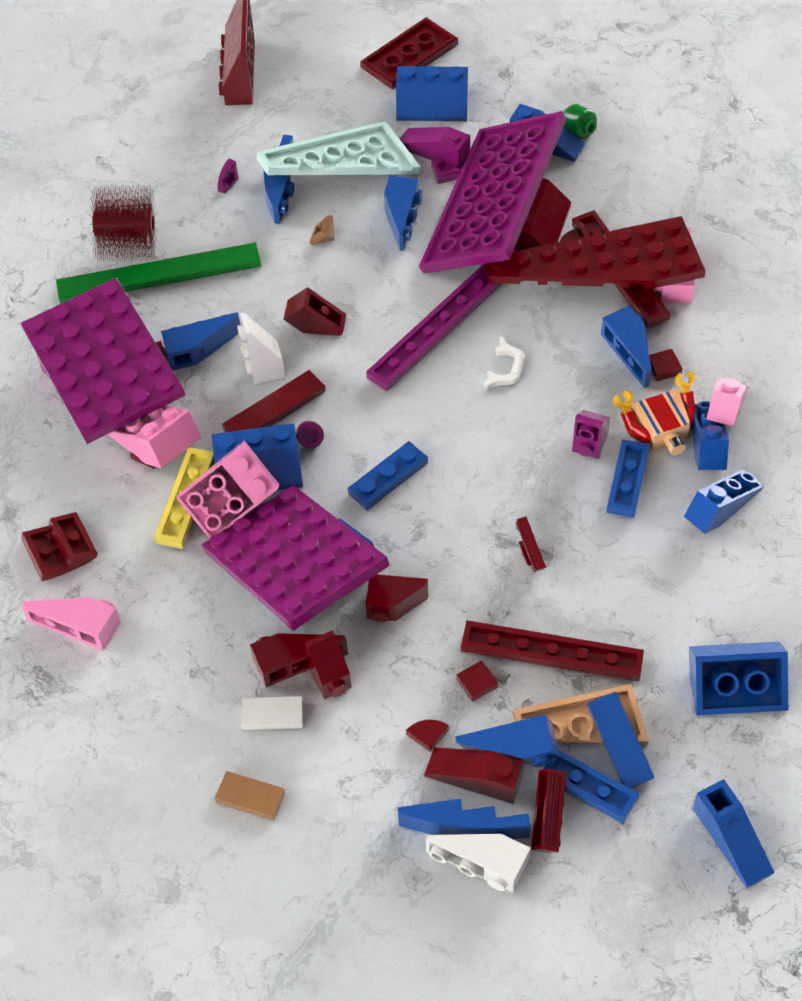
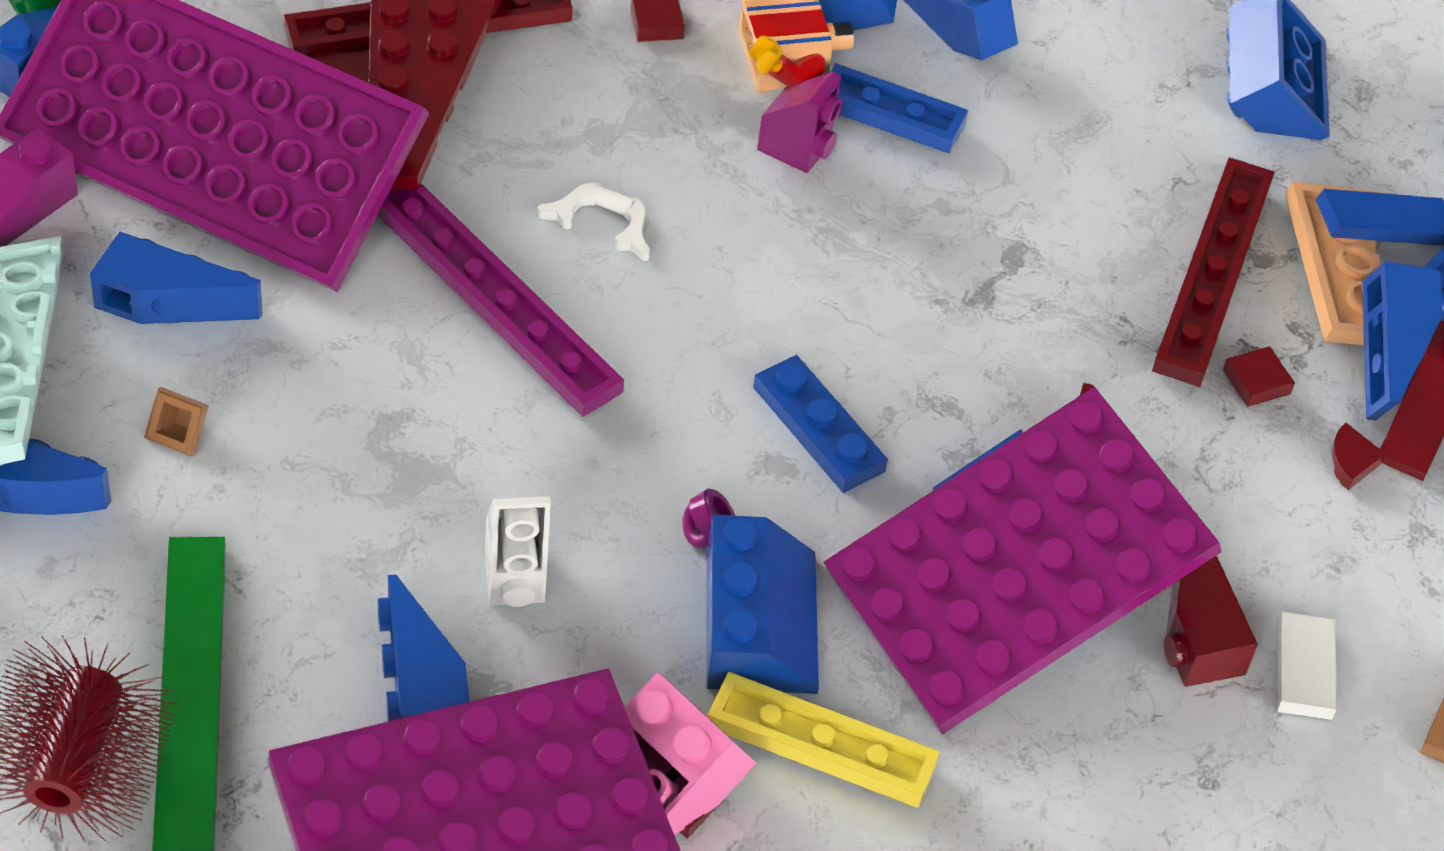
camera: 90 degrees left, 5 degrees down
(228, 490) = (841, 640): bright pink slope -> none
(277, 404) = (623, 573): dark red tile -> none
(314, 314) = (409, 468): dark red slope -> none
(328, 665) = (1249, 550): dark red slope -> none
(444, 172) = (75, 211): magenta tile -> none
(529, 545) = (1019, 251): dark red tile -> none
(627, 337) = (612, 39): blue slope -> none

